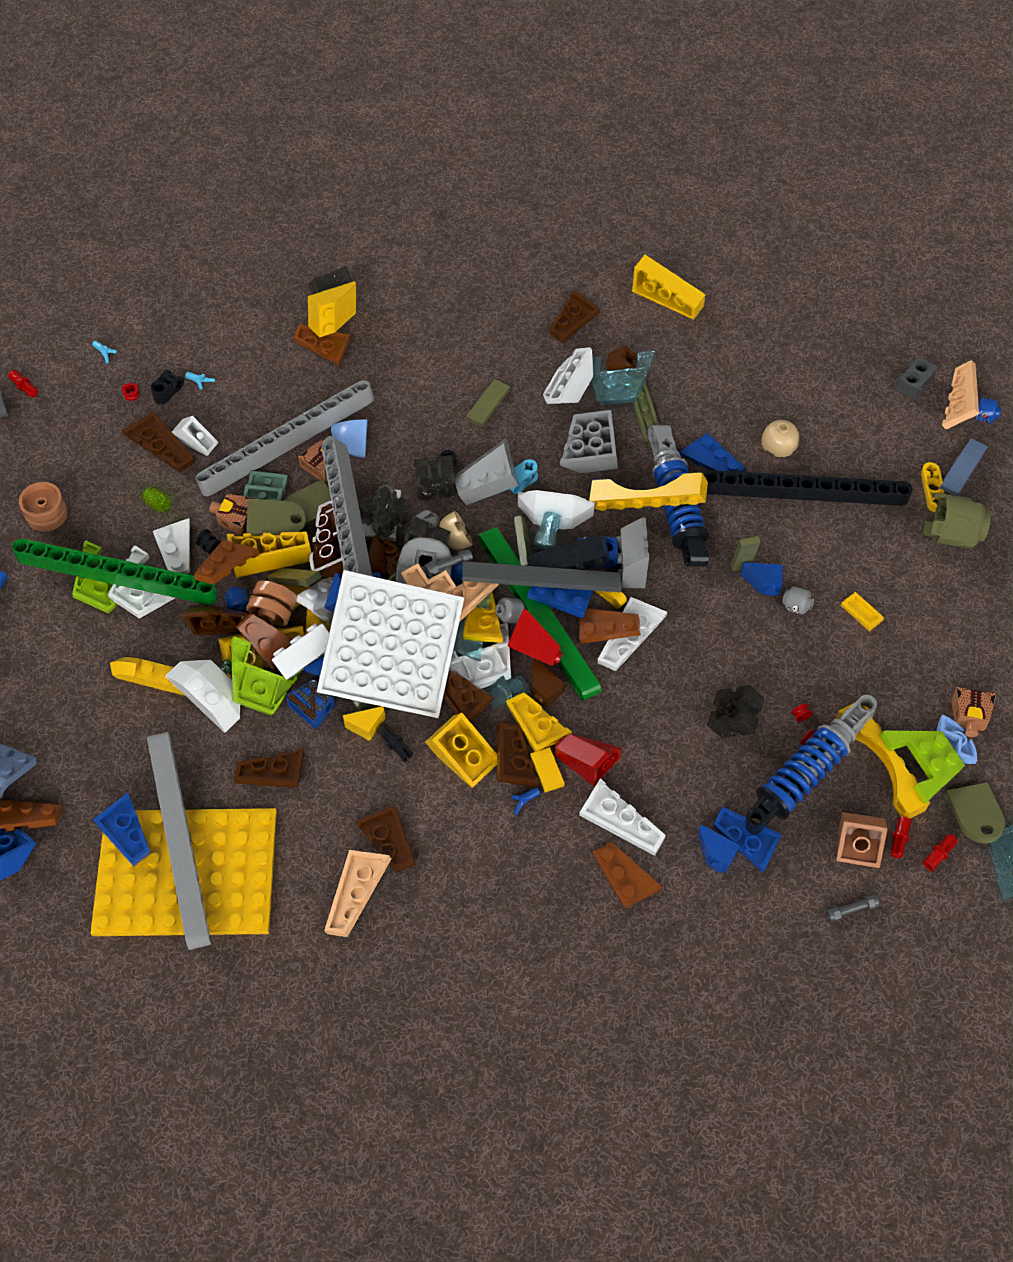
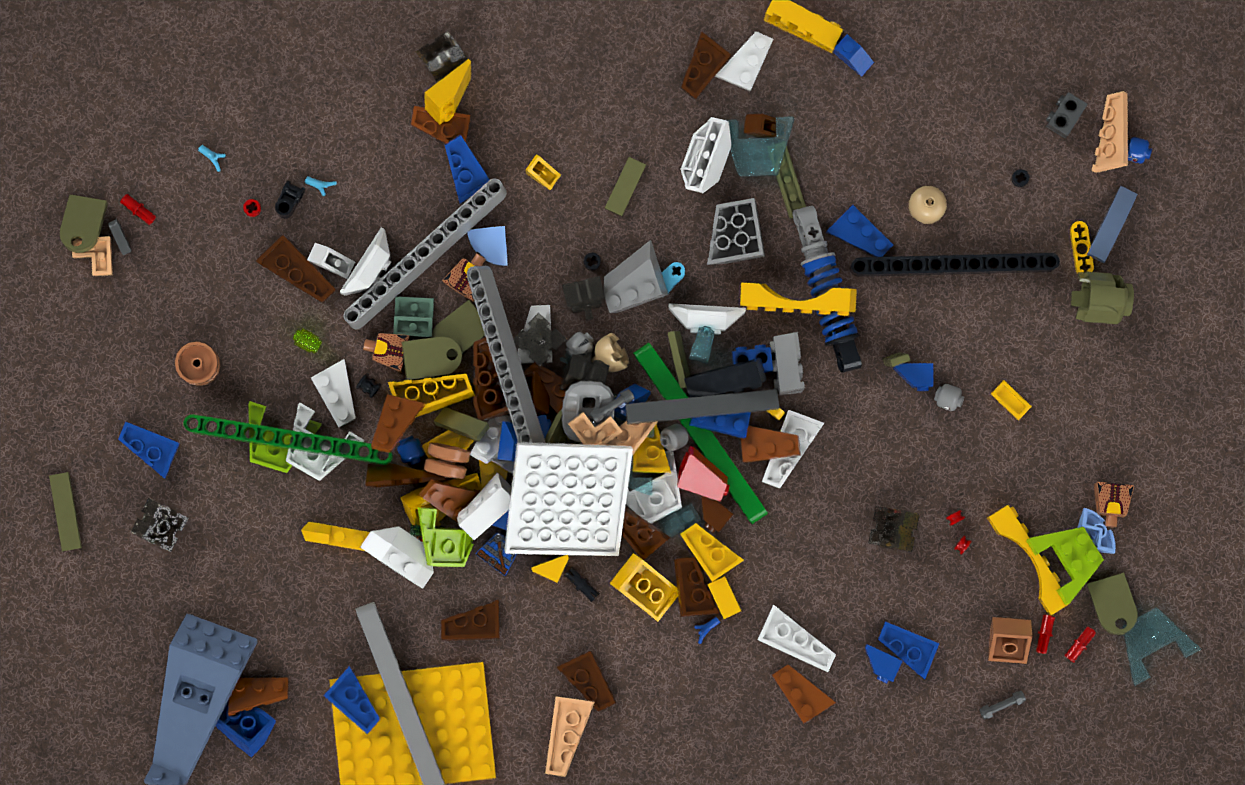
camera: 10 degrees left, 25 degrees up
(228, 439) = (370, 266): none -> white wedge
(336, 369) = (465, 168): none -> blue wing
(409, 382) = (542, 172): none -> yellow slope
(587, 757) = (760, 584): red slope -> none
(613, 319) = (746, 63): none -> white wing
(713, 317) = (853, 55): none -> blue slope
(809, 765) = (963, 578): piece -> none
(871, 430) = (1018, 172): none -> black bush

